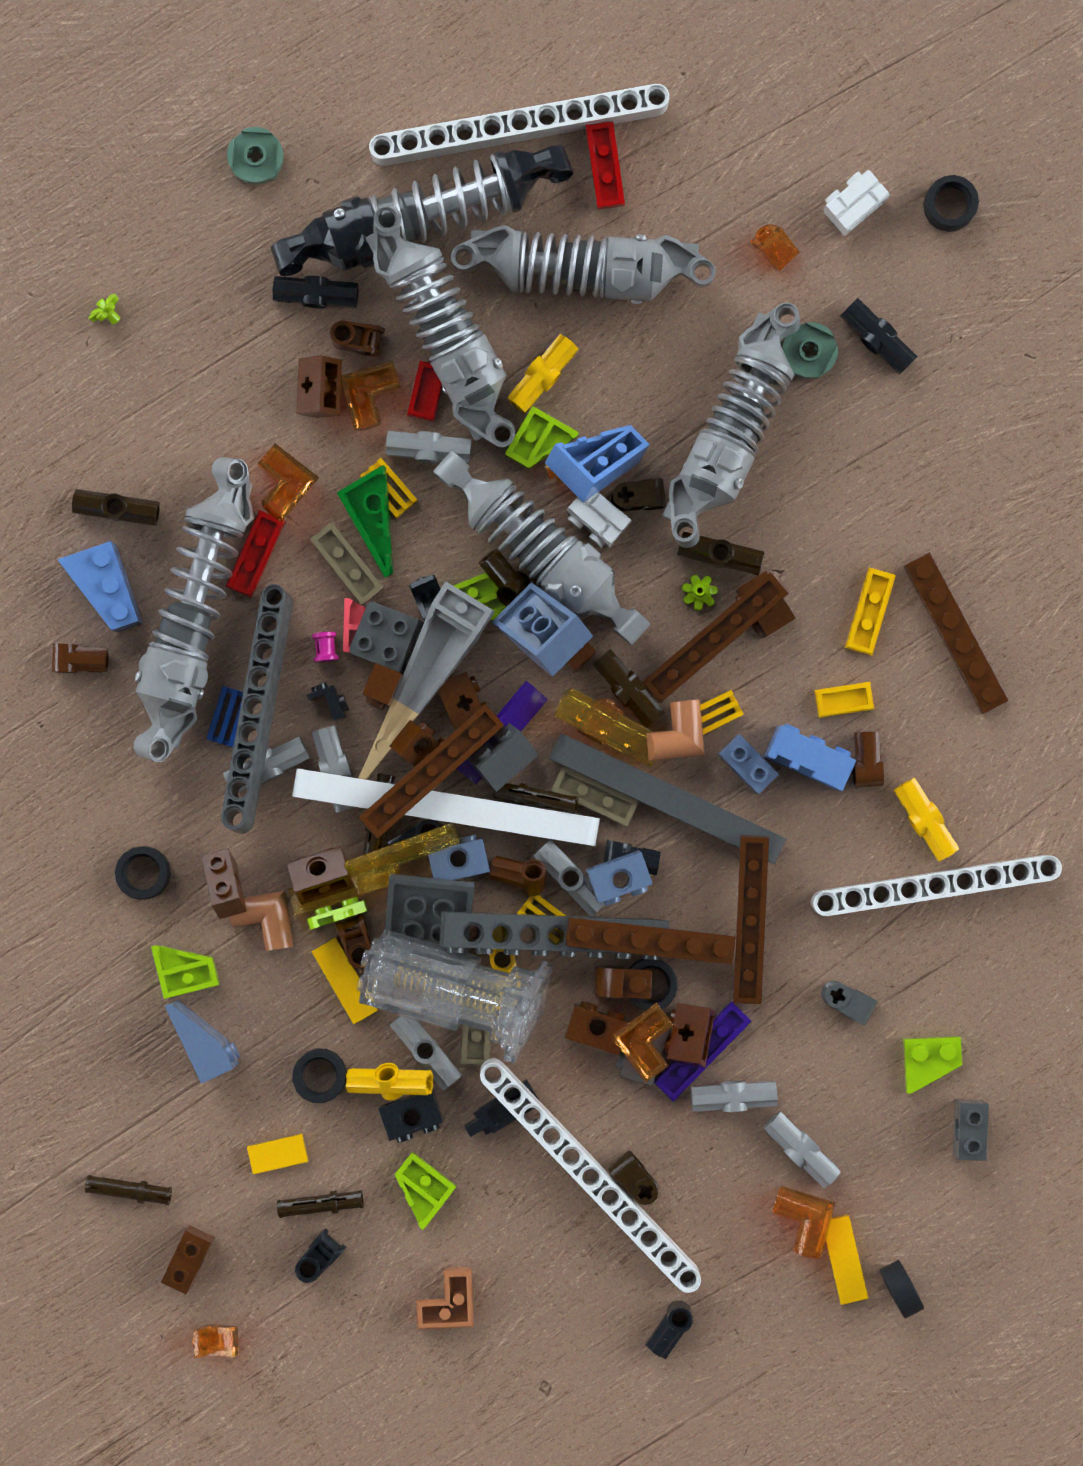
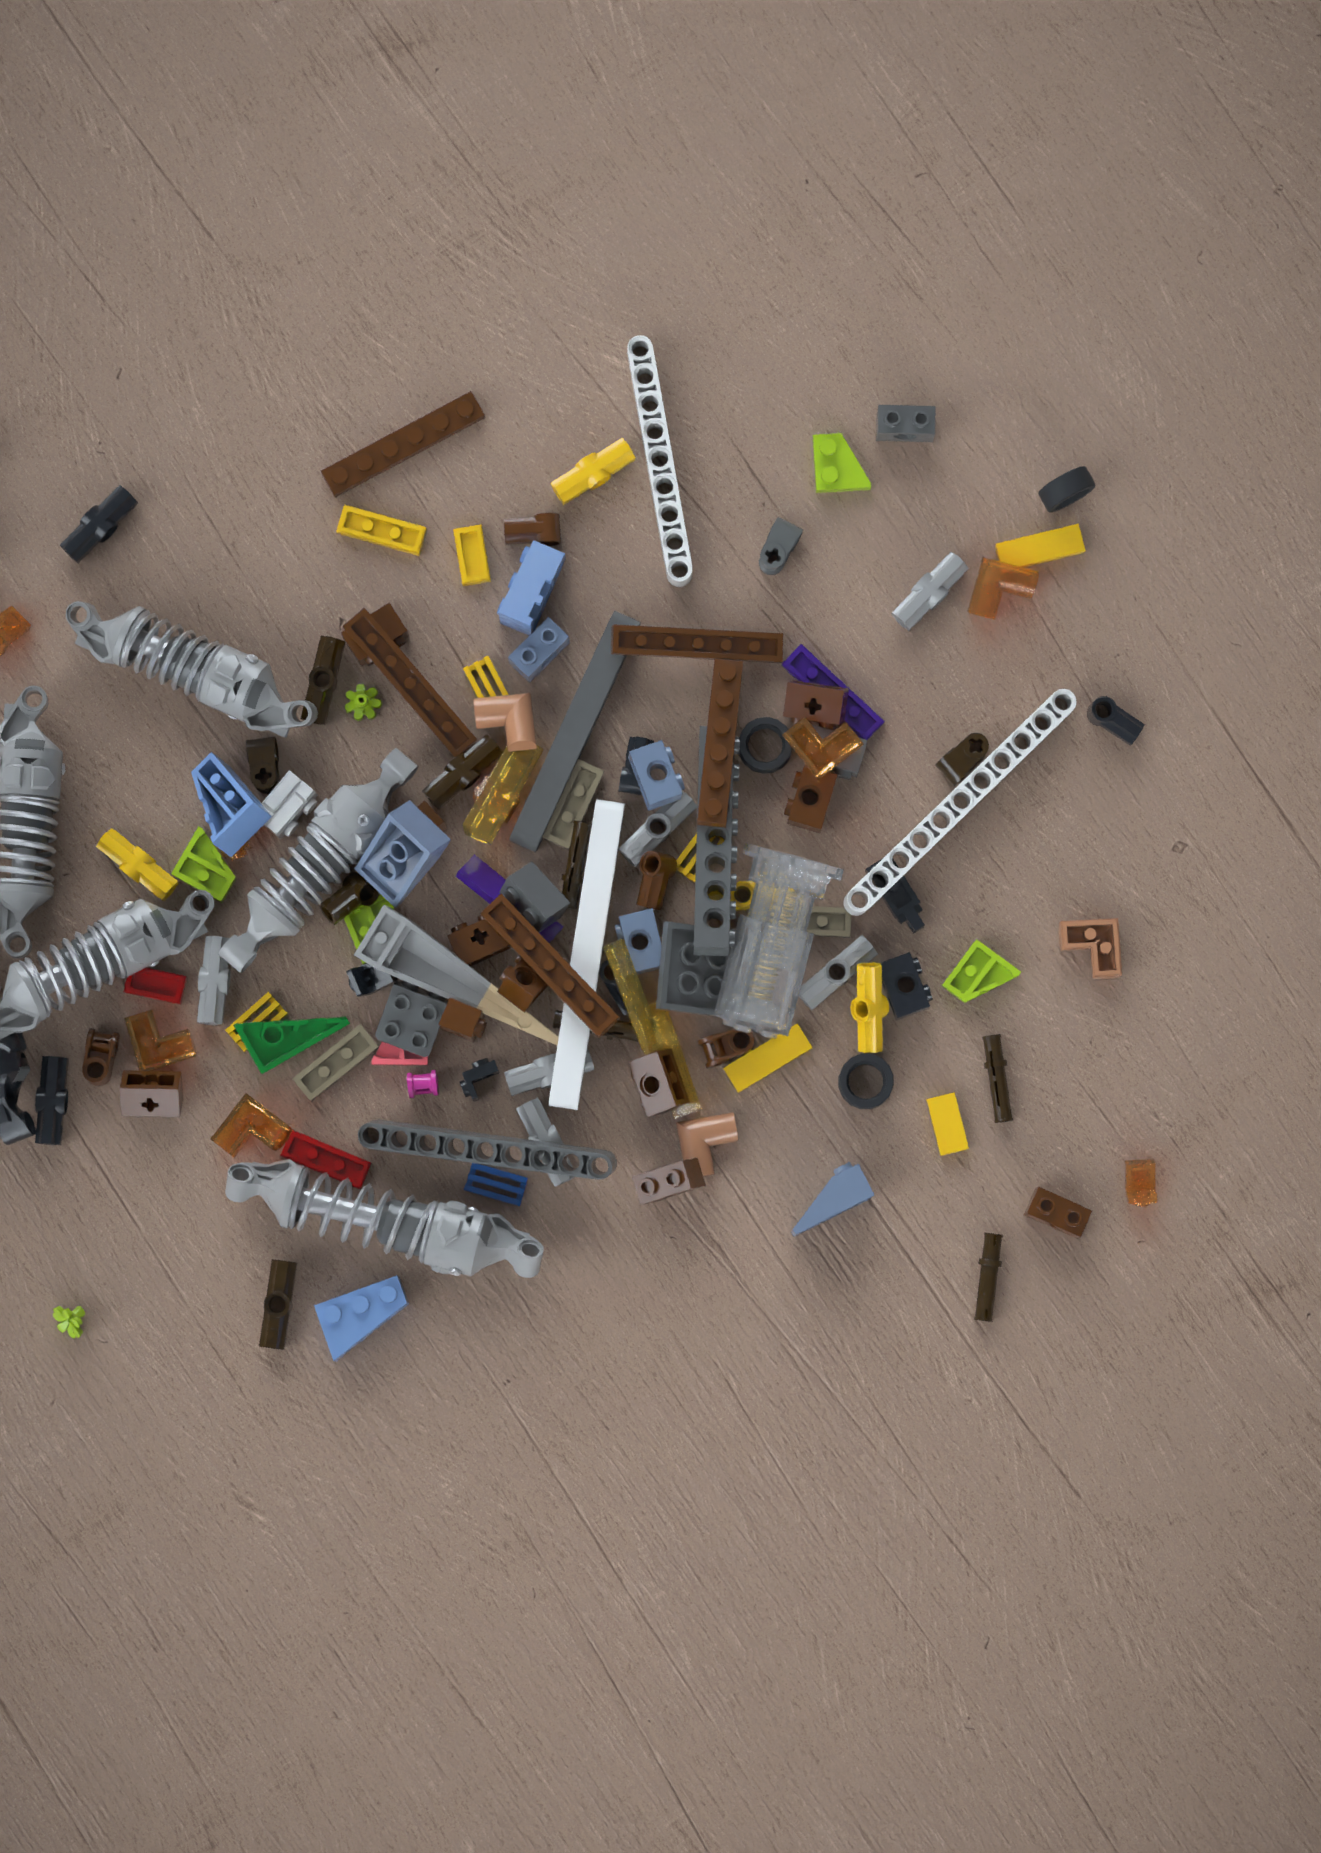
camera: 90 degrees left, 5 degrees down
(71, 658) = (437, 1347): reddish brown piece -> none
(121, 875) = (639, 1259): black tyre -> none
(183, 971) = (761, 1224): lime wing -> none
(319, 1255) = (1050, 1077): black piece -> none
(327, 915) = (693, 1053): lime wing -> none
(622, 982) = (763, 772): reddish brown brick -> none
(734, 1096) = (877, 659): light grey piece -> none
(824, 344) = (109, 578): sand green plate -> none

